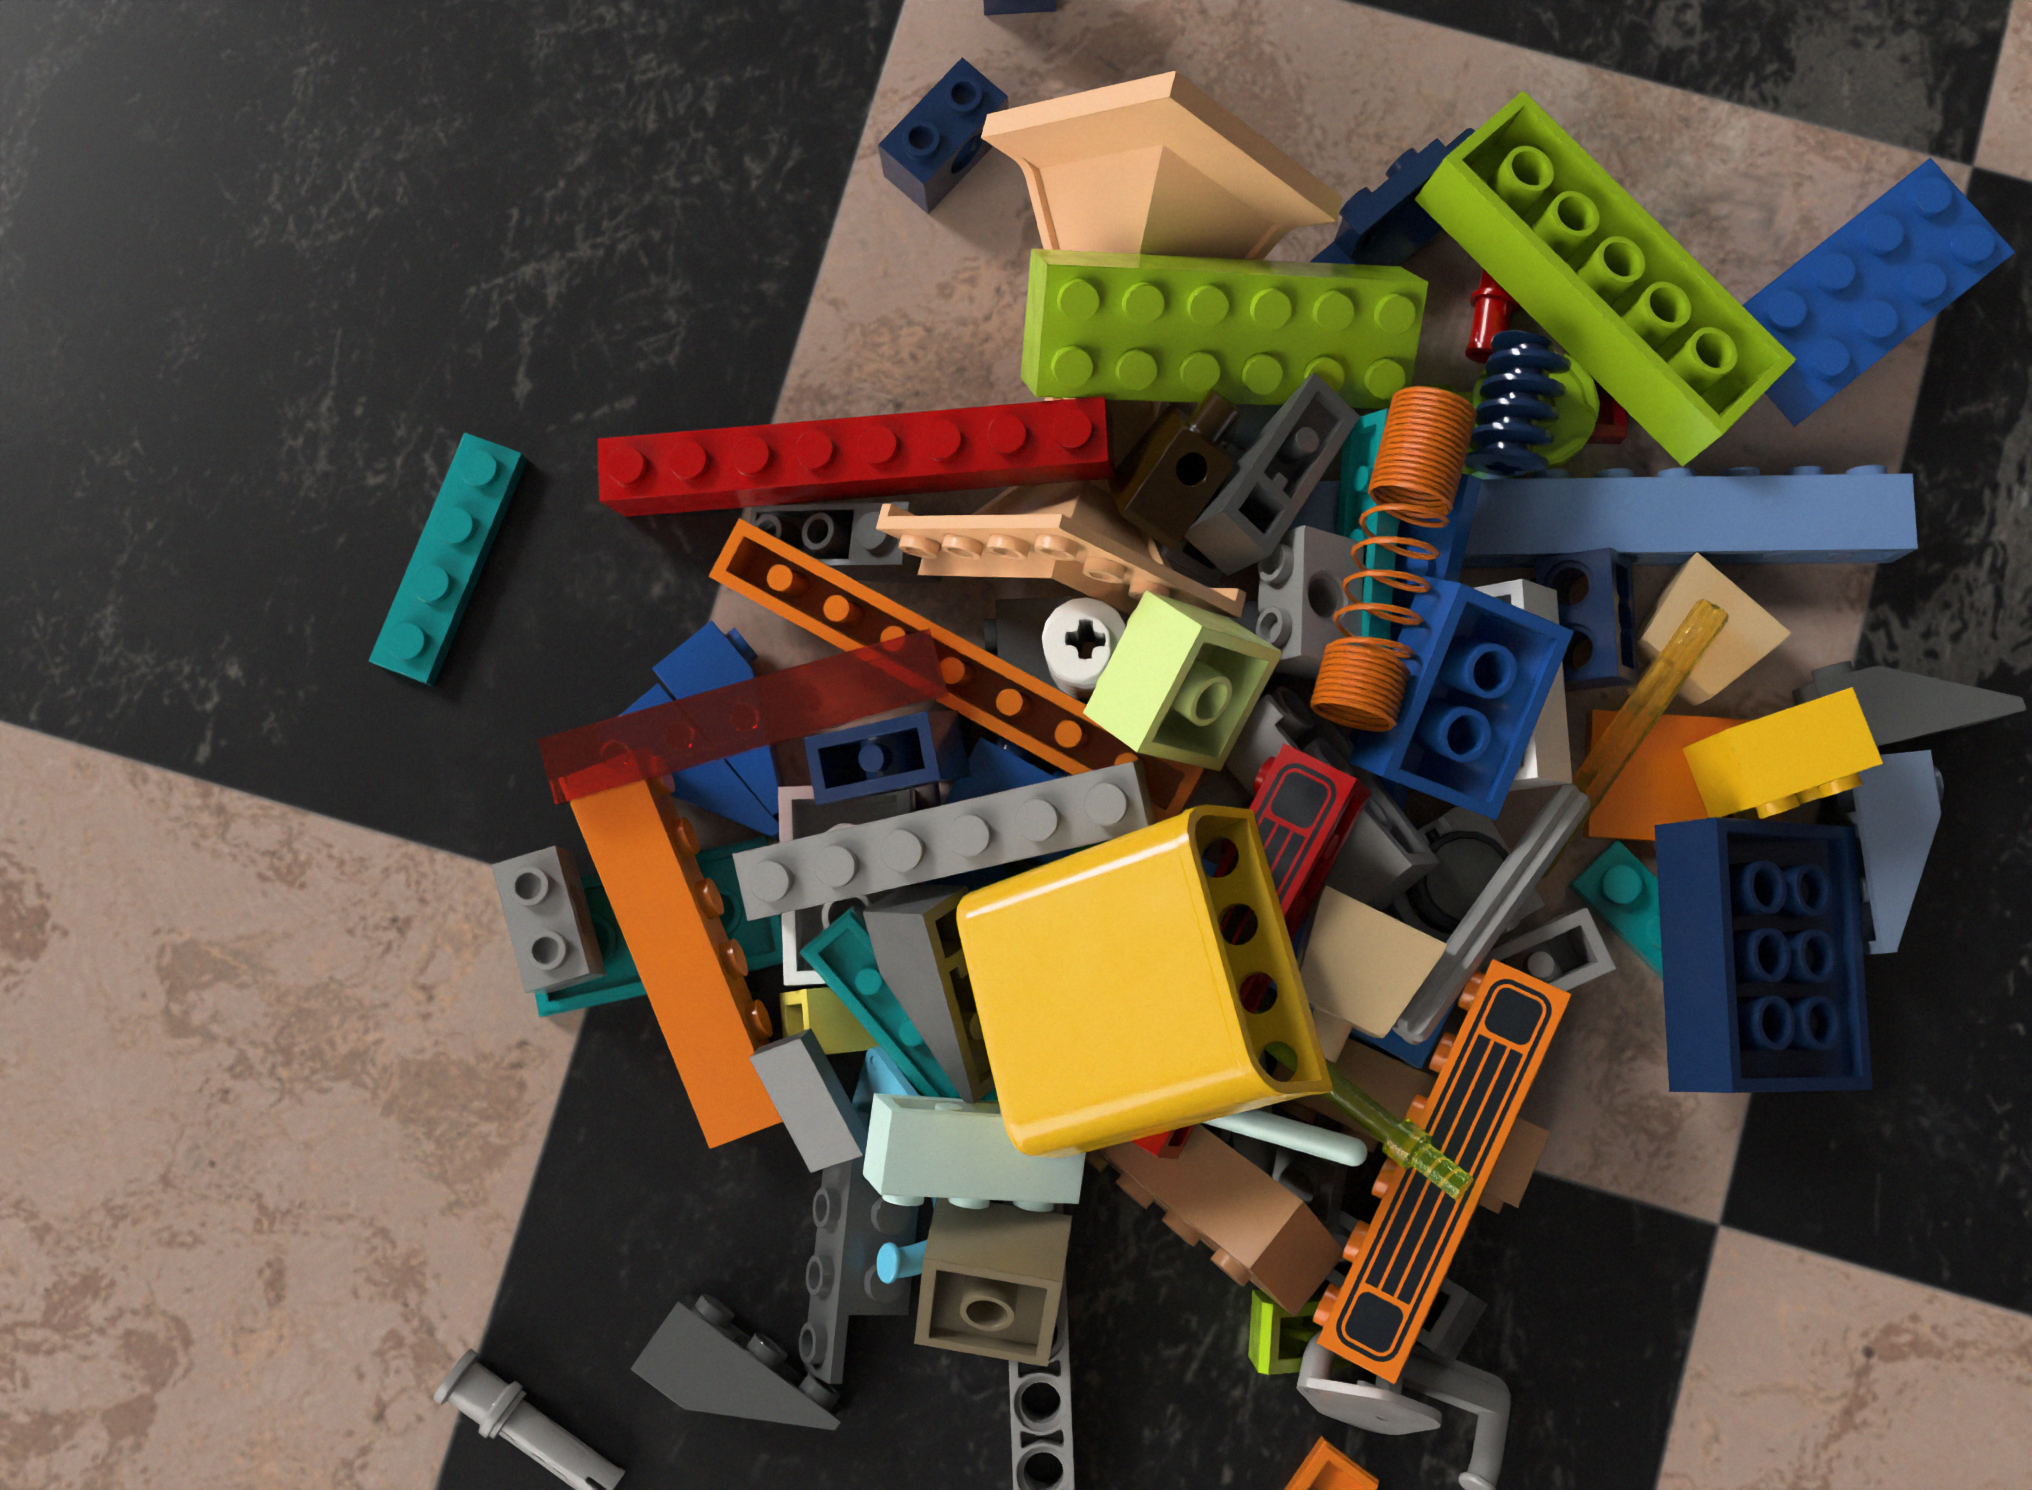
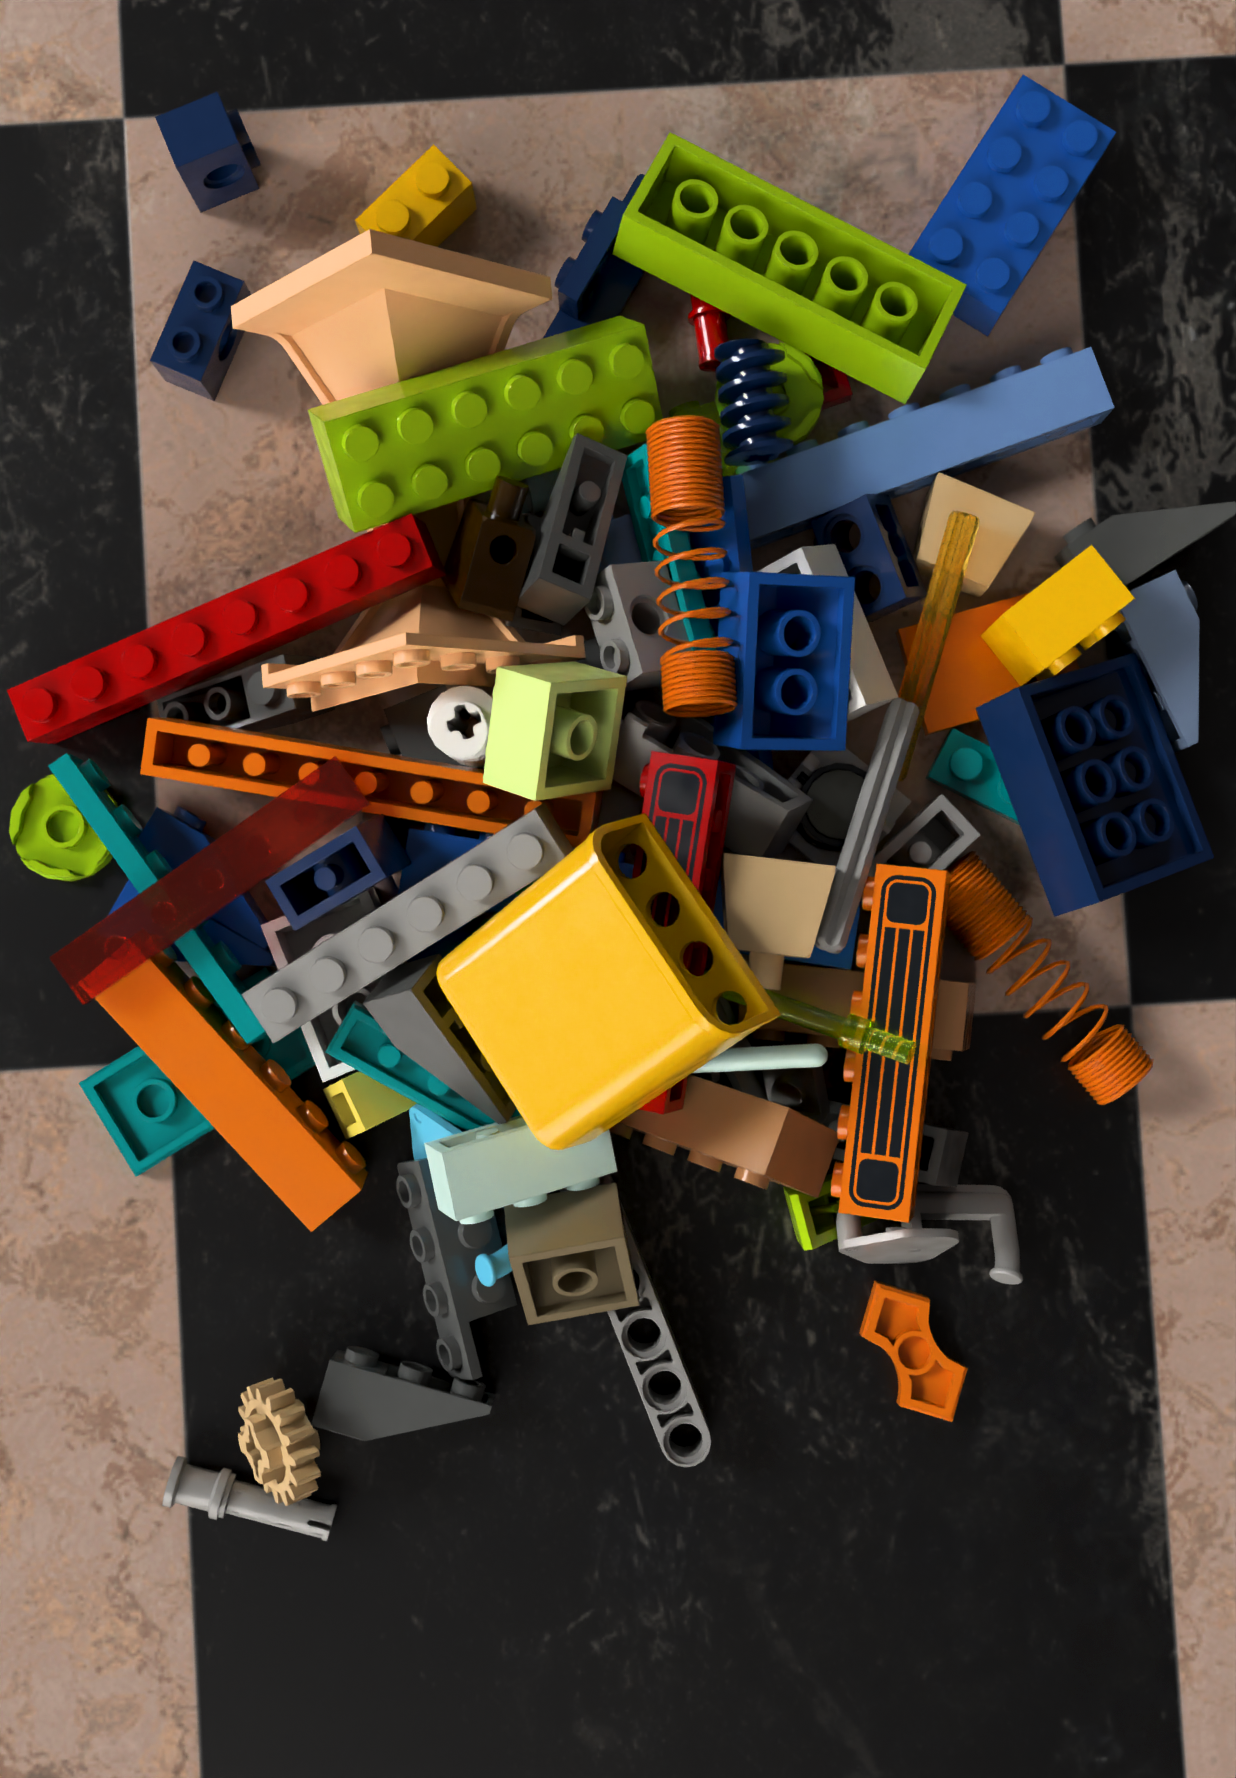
camera: 25 degrees left, 5 degrees up
(548, 920) = (114, 1097): light grey brick -> none
(589, 1374) = (279, 1441): none -> tan gear
(604, 609) = (54, 833): none -> lime tile
(661, 631) = (119, 833): none -> teal plate
(810, 1100) = (377, 1165): tile -> none
(1237, 72) = (423, 202): none -> yellow brick
(1590, 1066) = (988, 917): none -> orange piece

